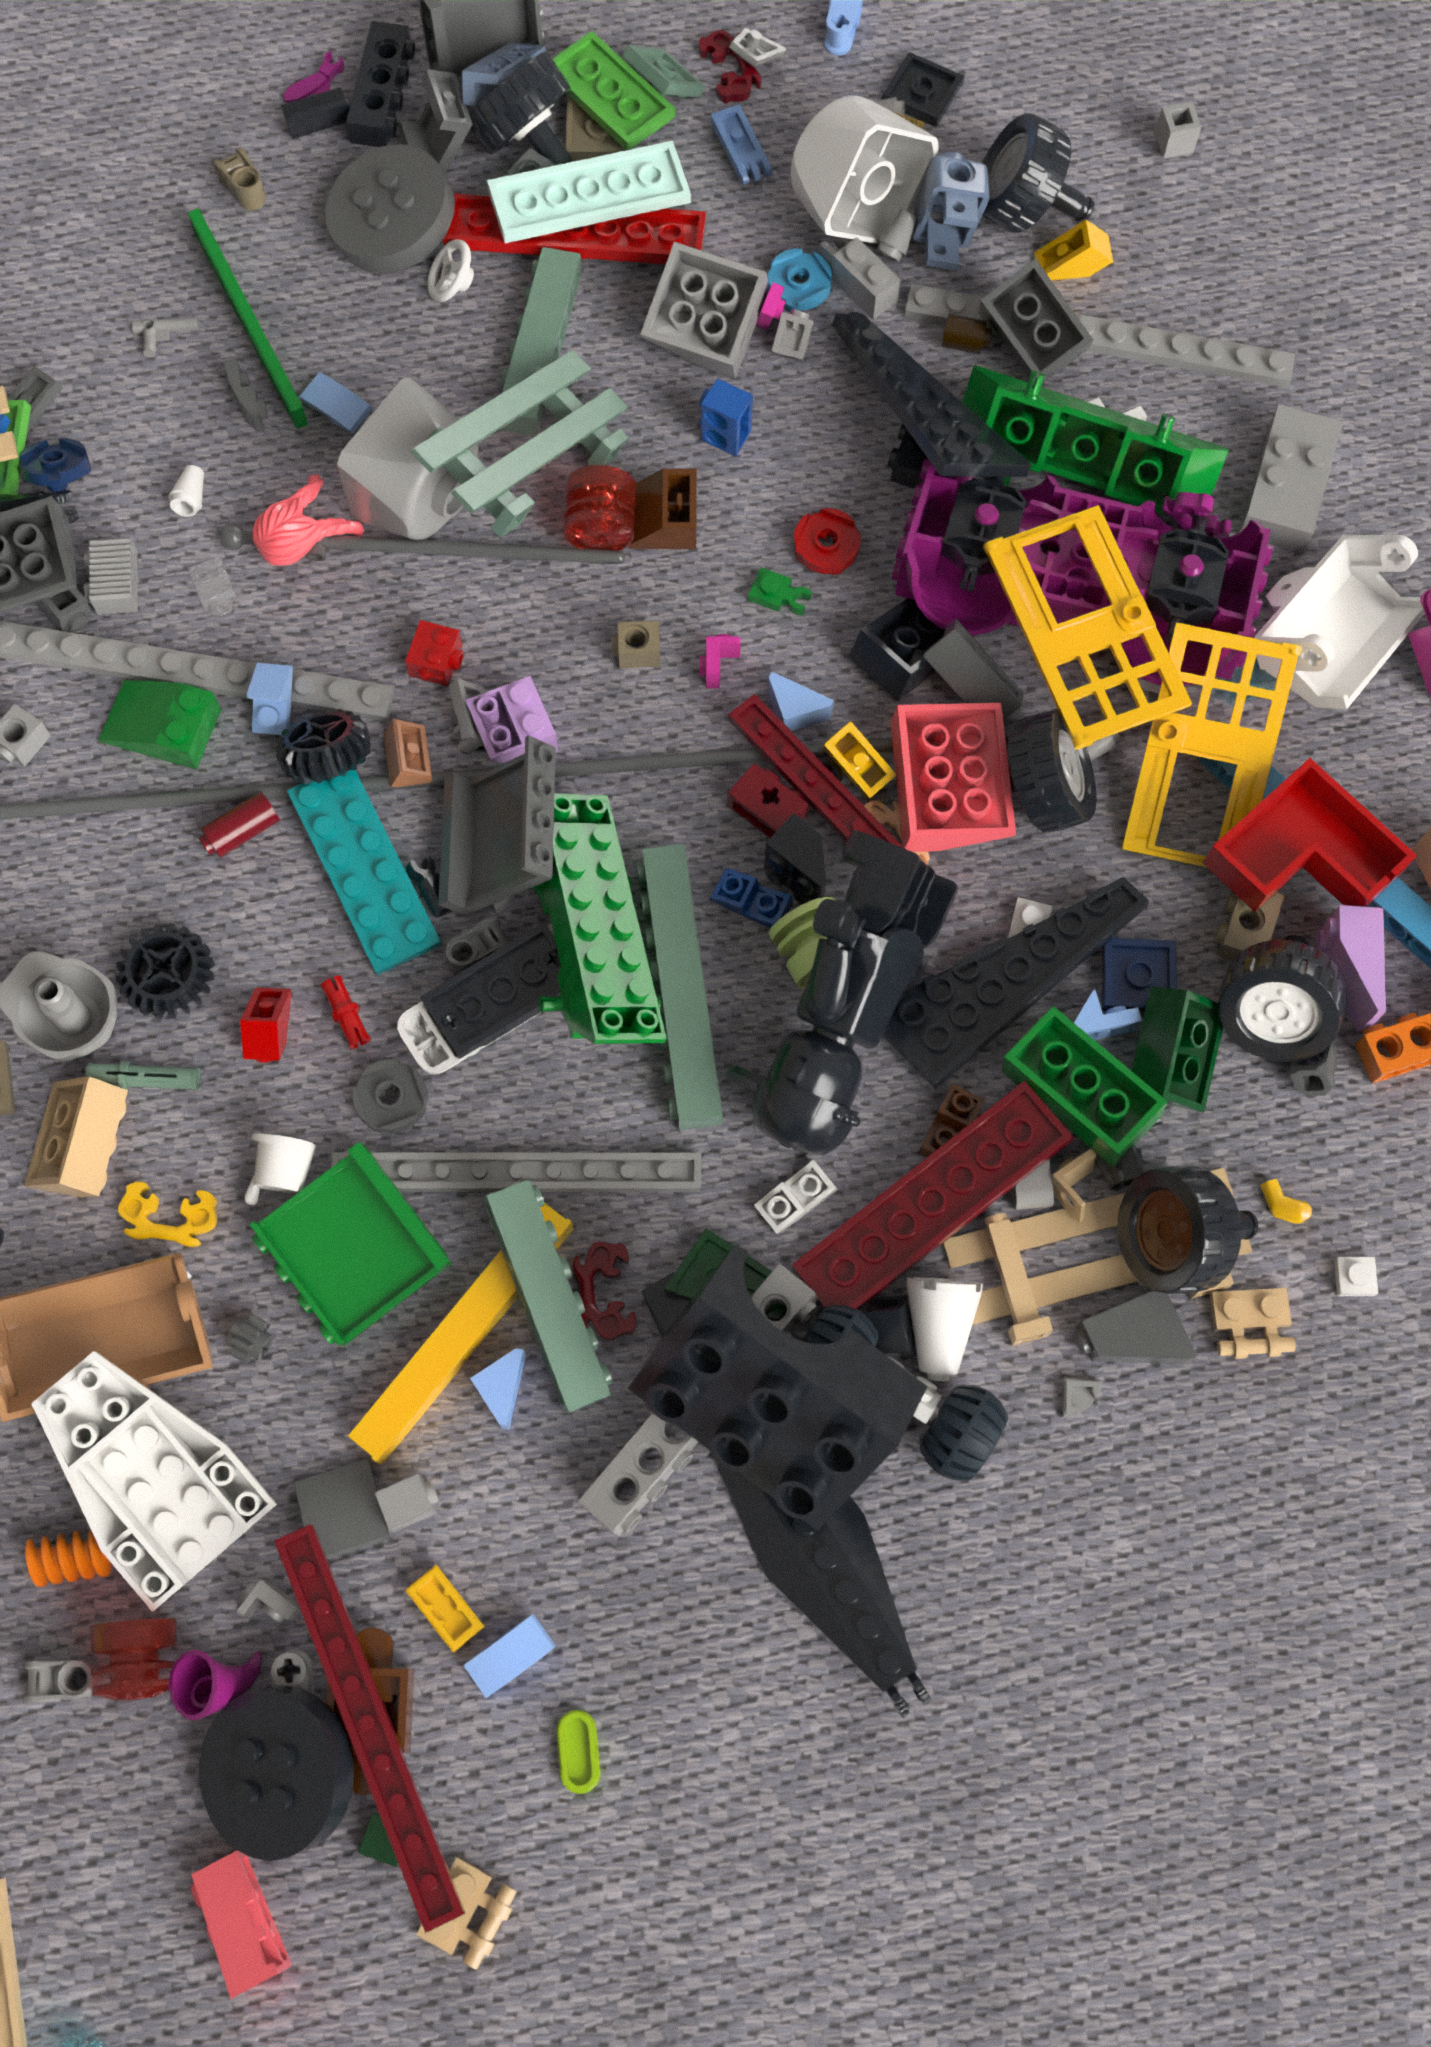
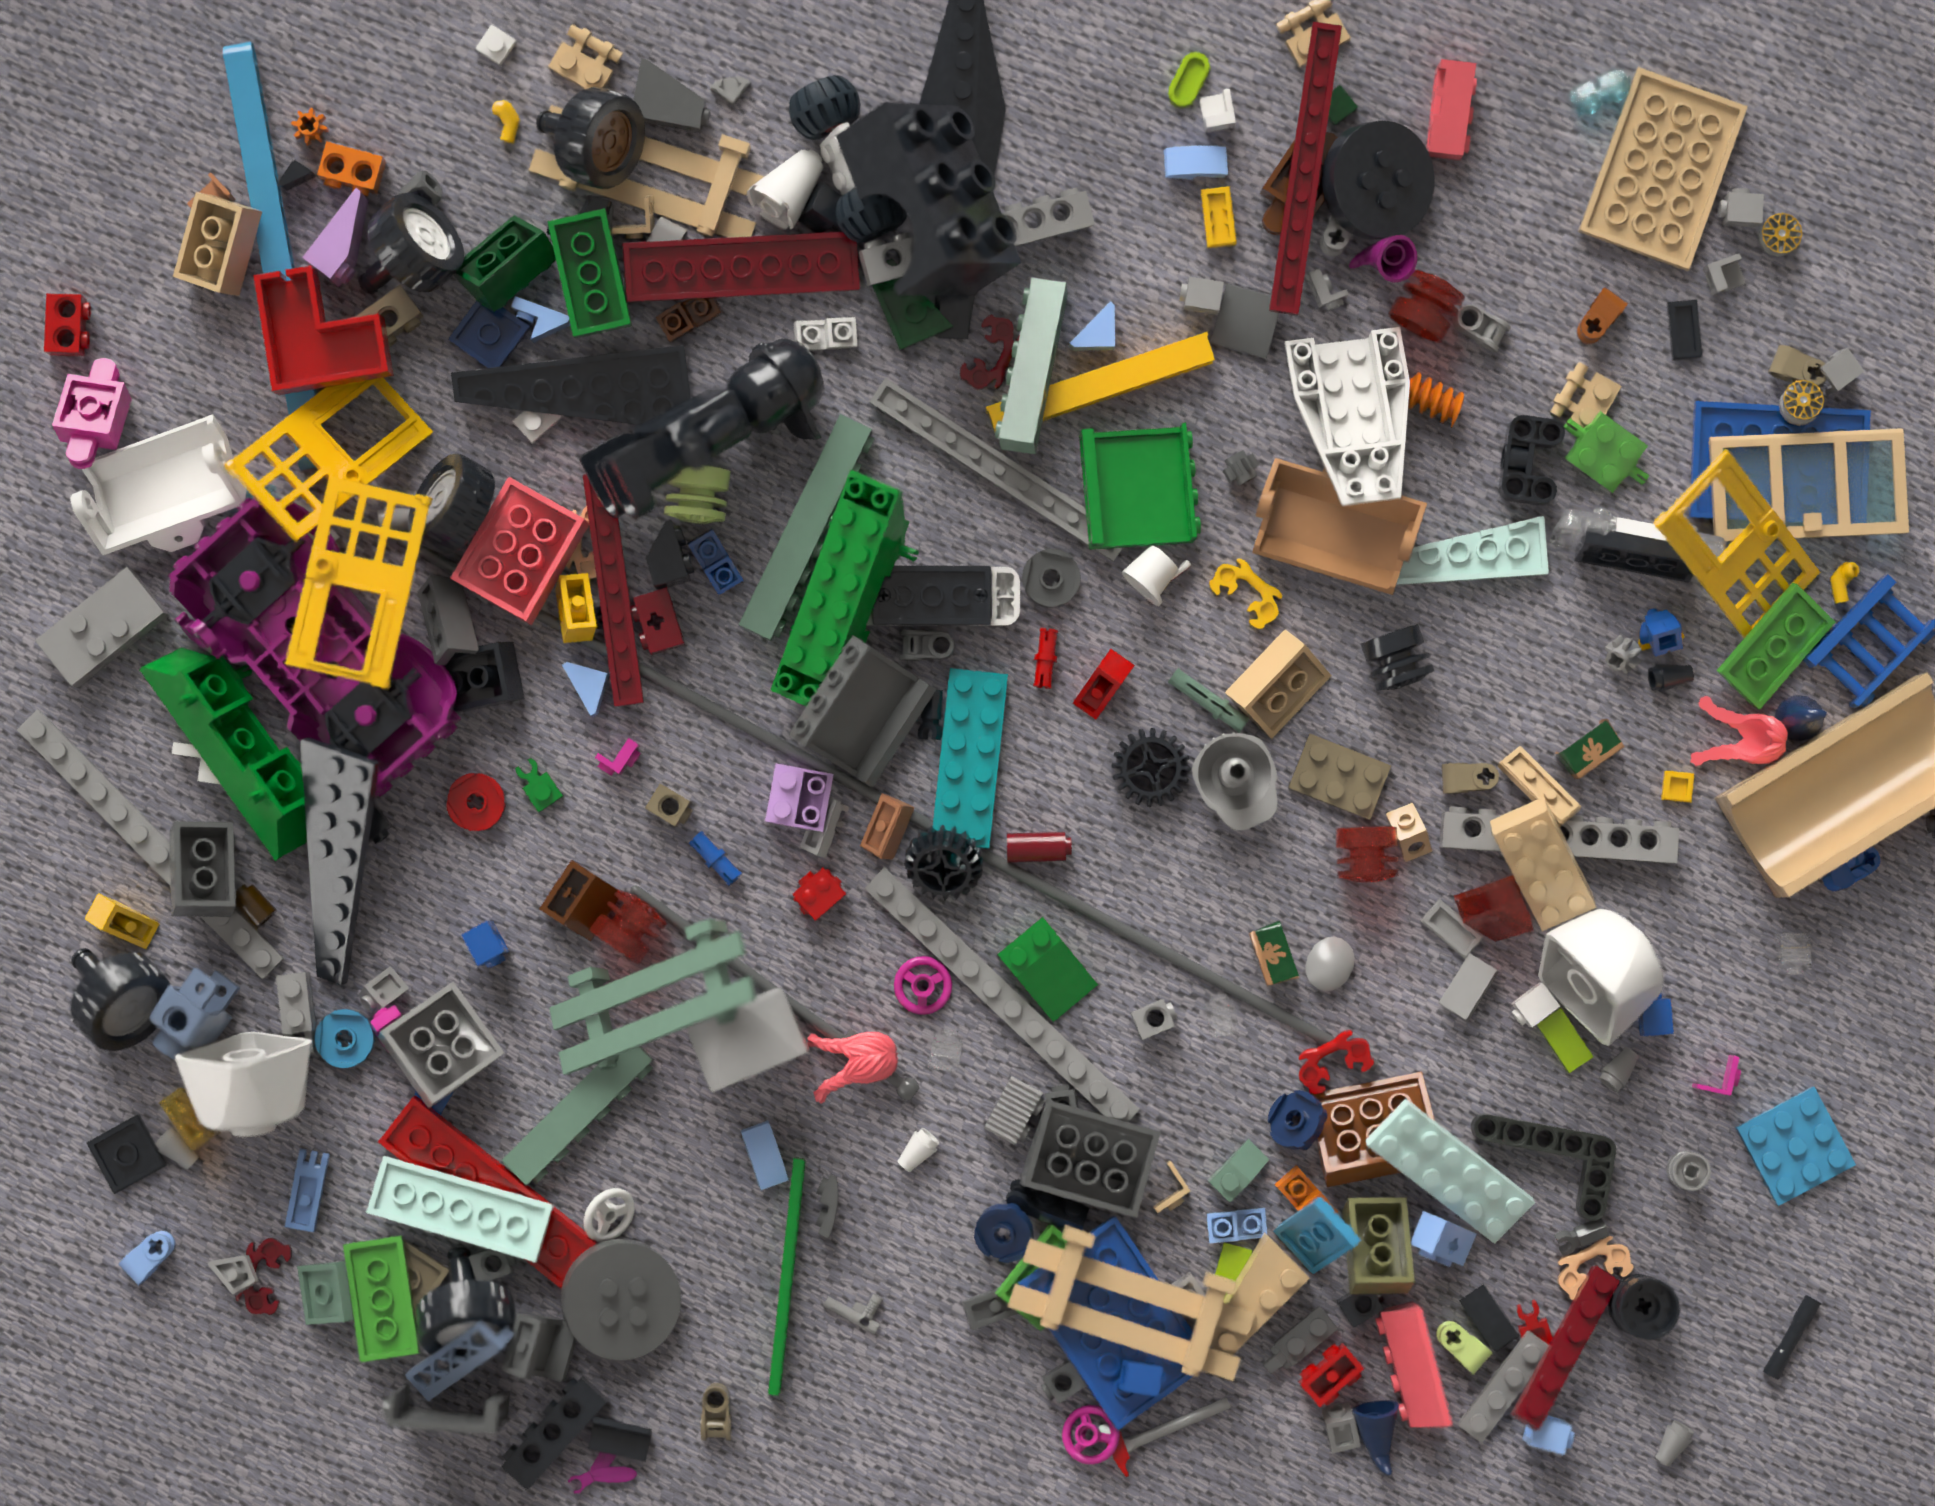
camera: 150 degrees left, 15 degrees up
(271, 698) = (957, 930): light blue slope -> none
(272, 622) = (904, 973): none -> dark pink piece
(521, 1734) = (1218, 112): none -> white panel
(559, 626) = (715, 858): none -> blue pin
(897, 236) = (248, 1022): light grey cone -> none

